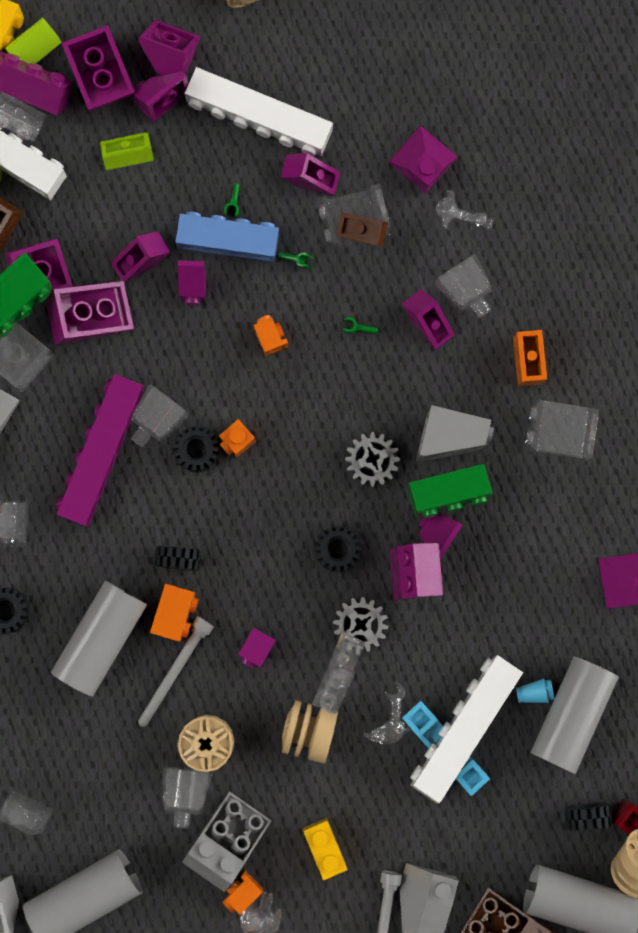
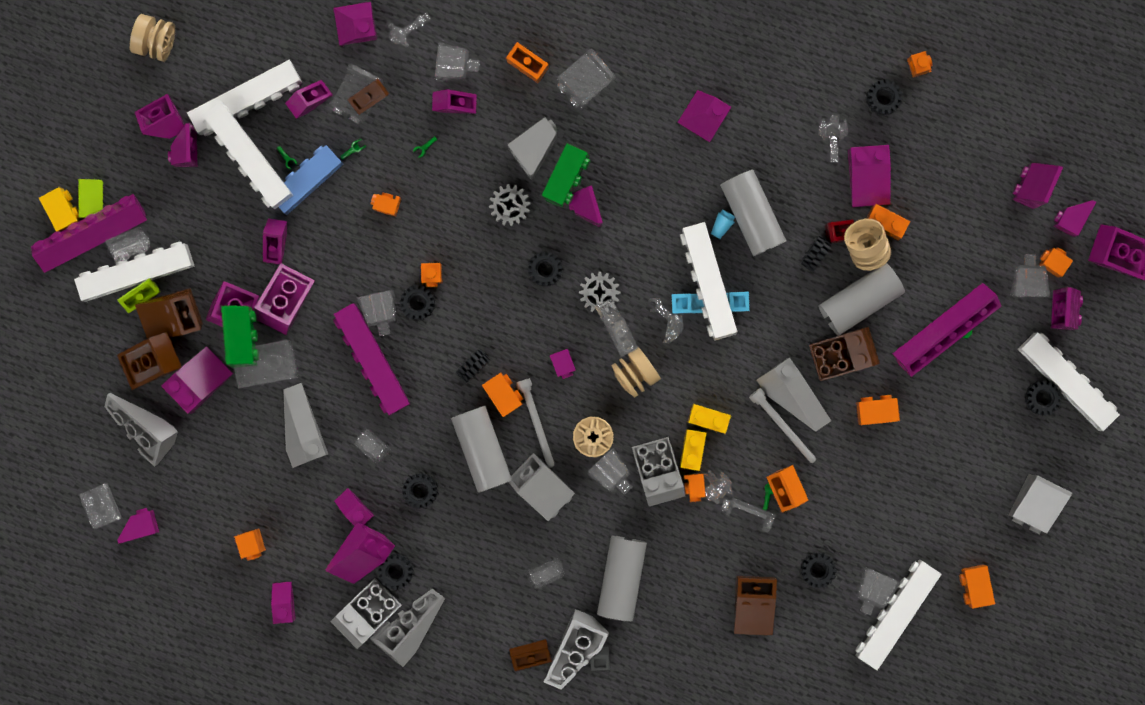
camera: 40 degrees left, 5 degrees up
(98, 68) = (139, 172): magenta slope -> none
(109, 732) = (541, 487): none -> light grey slope
(126, 151) = (202, 196): lime slope -> none
(192, 282) = (316, 223): magenta slope -> none
(202, 158) = (247, 155): none -> white brick
(278, 859) = (692, 450): none -> yellow brick
(416, 571) = (595, 234): magenta slope -> none

